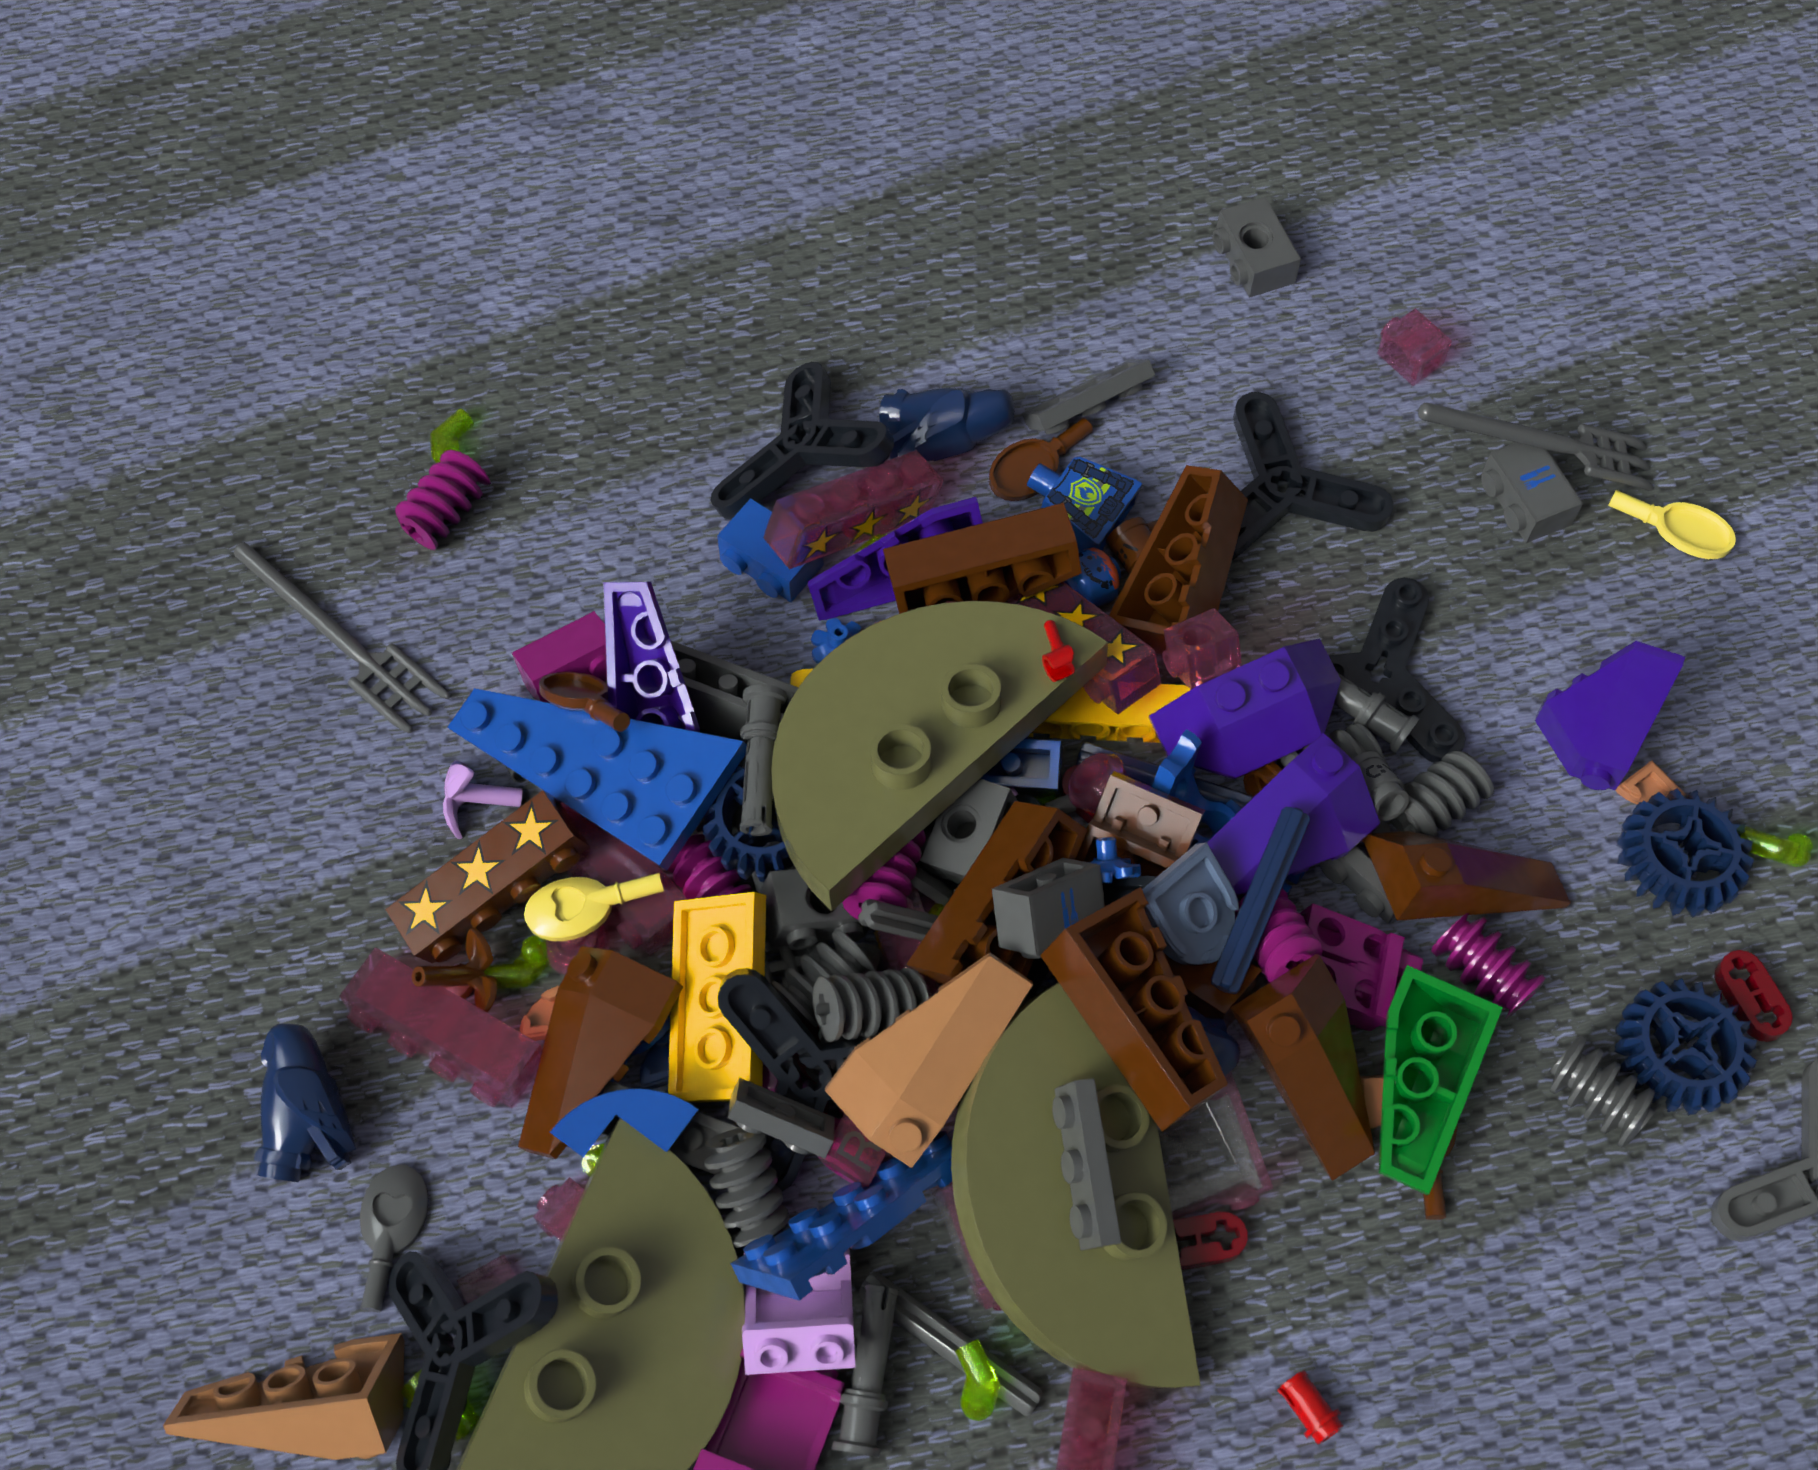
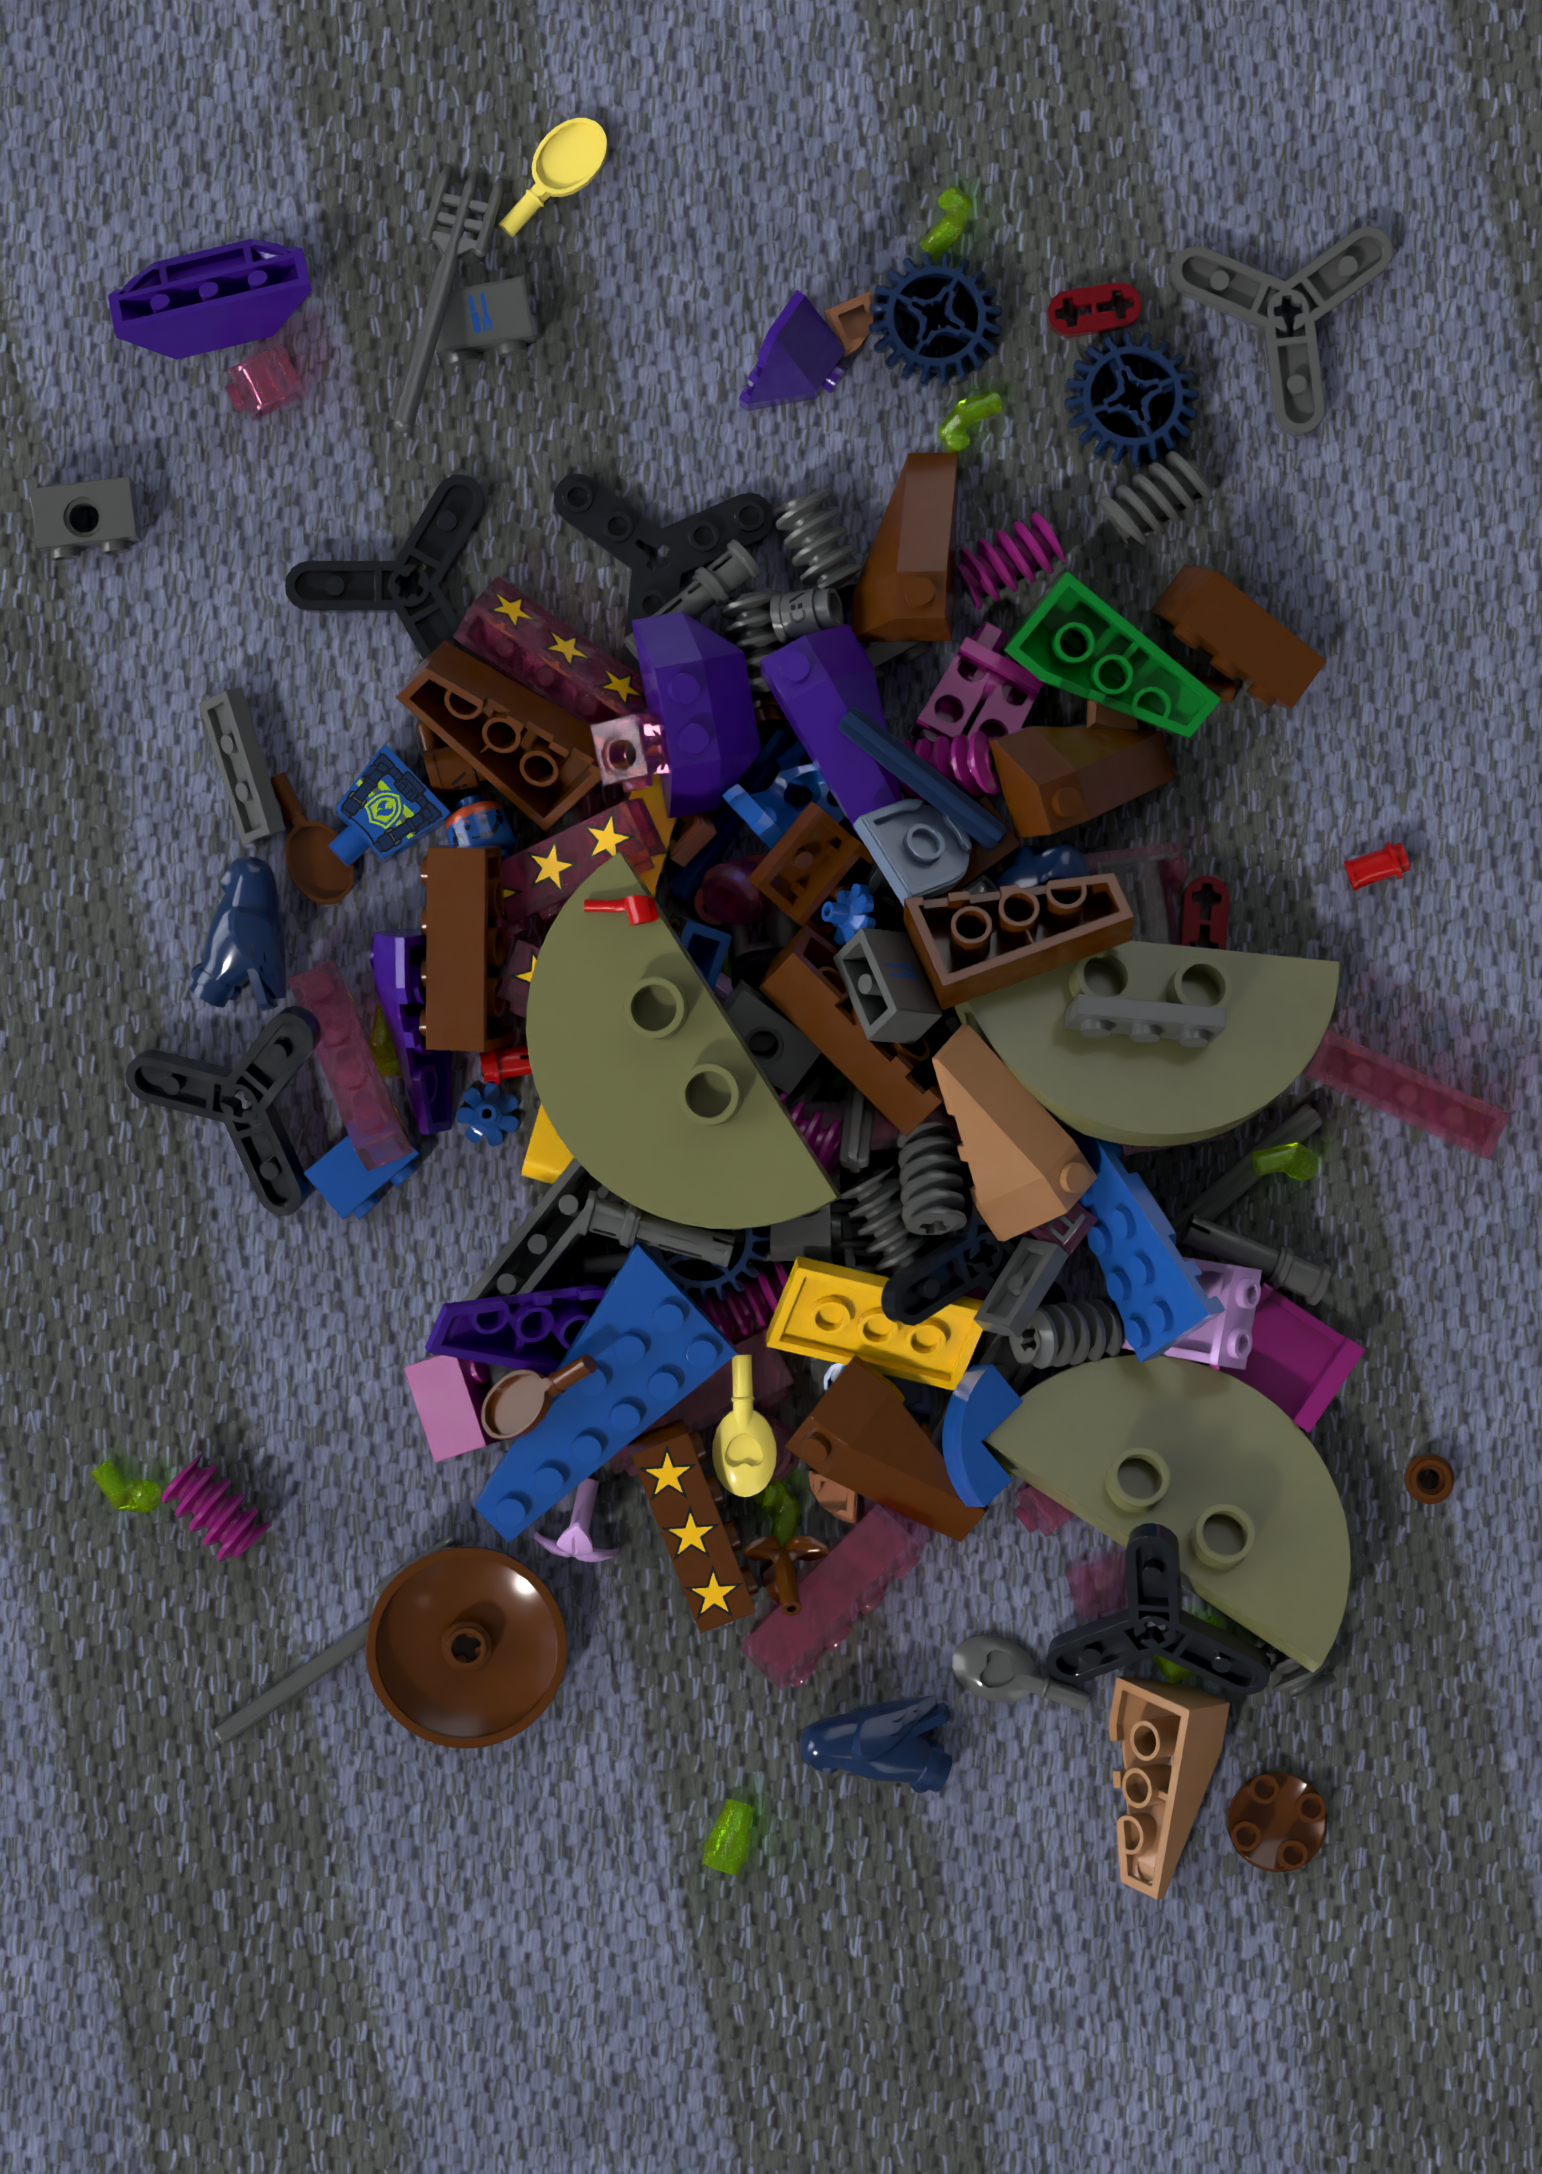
camera: 80 degrees left, 25 degrees up
(189, 990) = (729, 1839): none -> clear neon green cone
(345, 717) = (466, 1647): none -> reddish brown dish
(1137, 748) = (694, 836): none -> nougat tile
(1266, 582) = (549, 656): none -> clear pink brick
(1459, 288) = (211, 298): none -> dark purple wedge
(1495, 1203) = (1238, 636): none -> reddish brown wedge
(1604, 898) = (962, 415): none -> clear neon green arm

